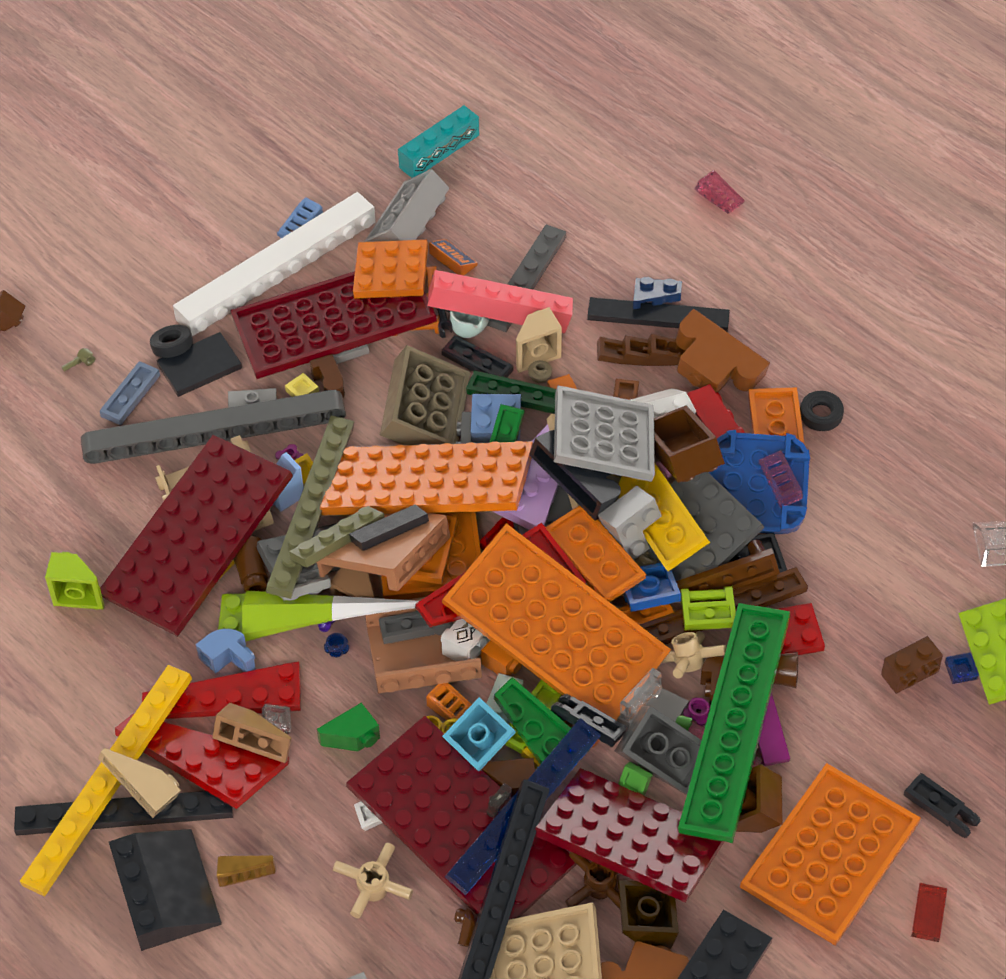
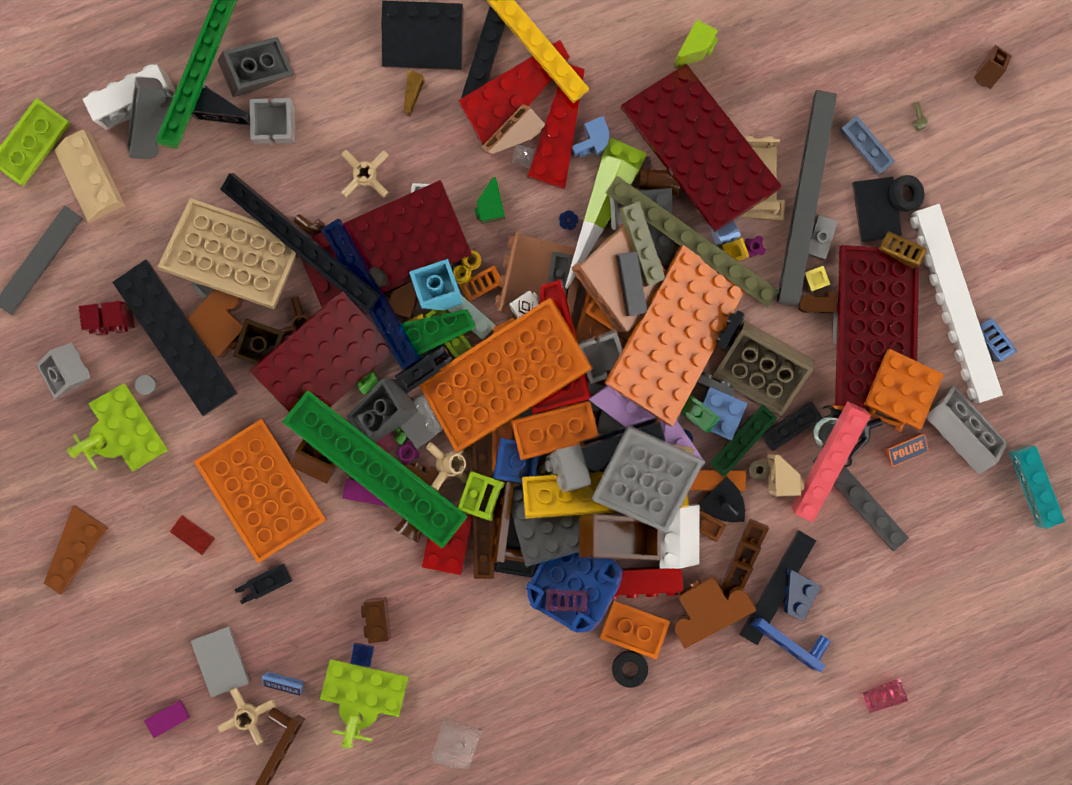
camera: 110 degrees right, 35 degrees up
(145, 783) = (495, 40): tan slope -> none
(238, 309) = (913, 247): none -> pearl gold slope
(394, 434) = (734, 322): none -> black plate
(475, 532) = (601, 354): none -> light grey piece
(592, 380) = (725, 502): none -> black shield
(718, 263) = (810, 659): none -> blue piece

